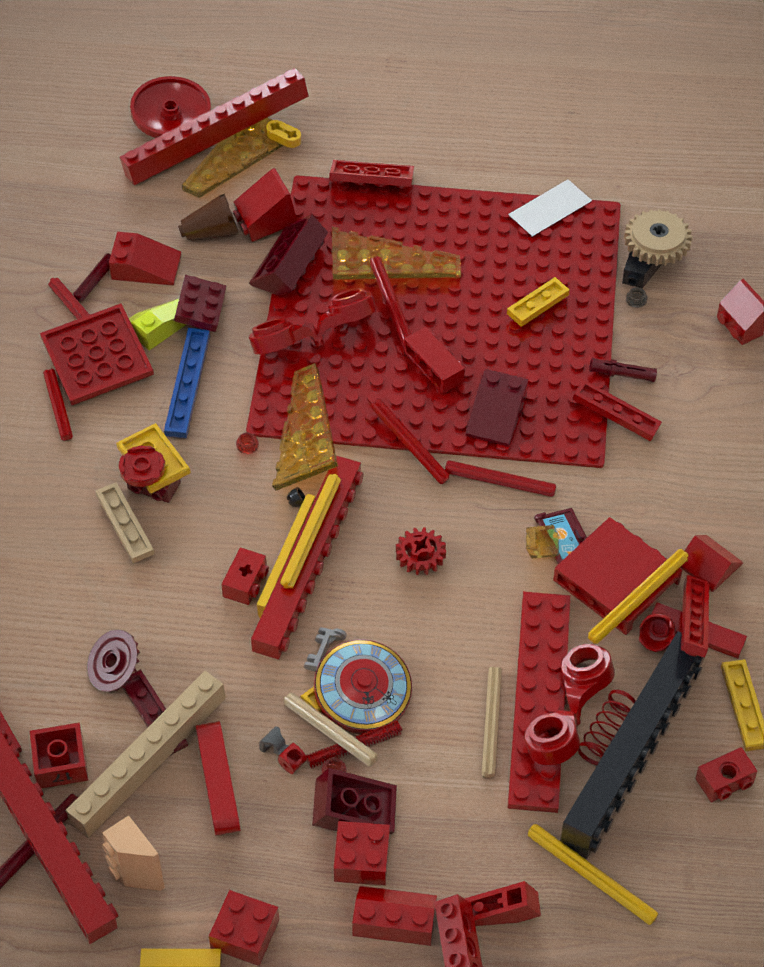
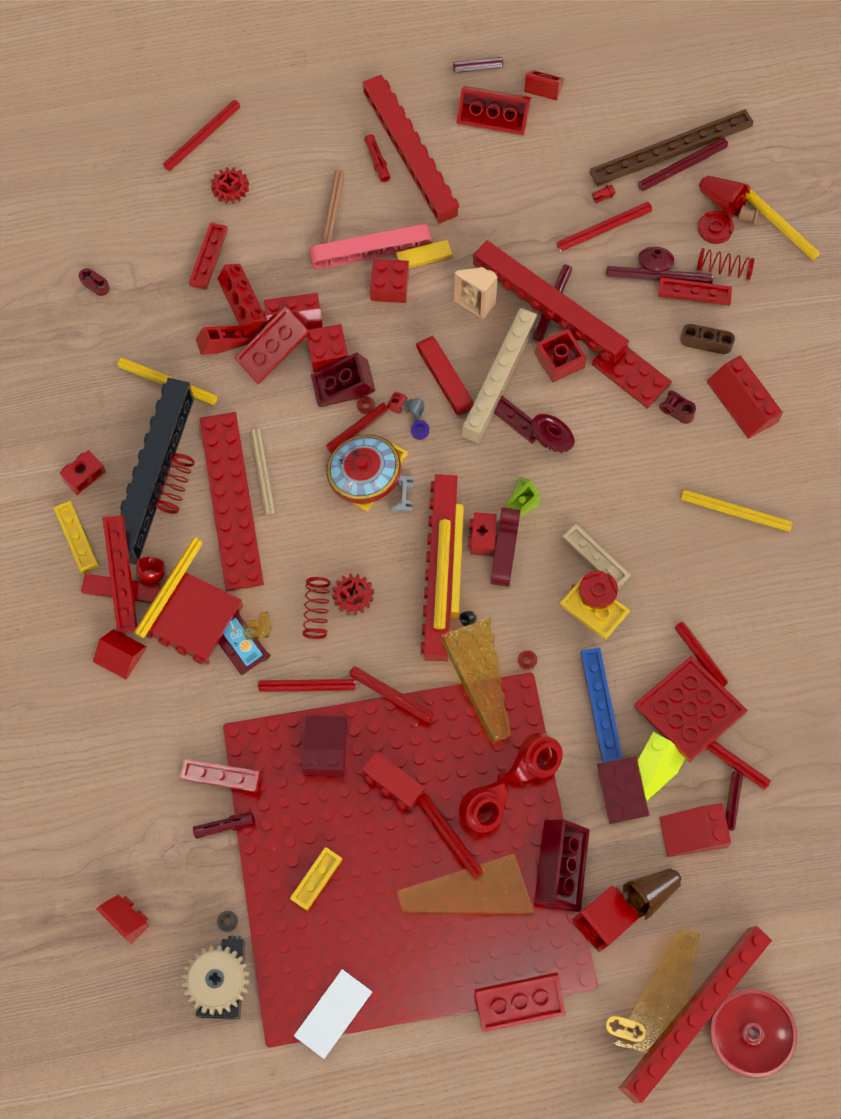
camera: 165 degrees right, 15 degrees up
(182, 605) = (524, 496): none -> lime slope
(211, 569) = (505, 547): none -> dark red beam
(275, 718) = (419, 430): none -> dark purple tile
(330, 729) = (377, 427): tan axle -> none
(436, 871) = (272, 345): none -> red tile
(467, 565) = (316, 630): none -> red piece
(580, 686) = (207, 470): red piece -> none

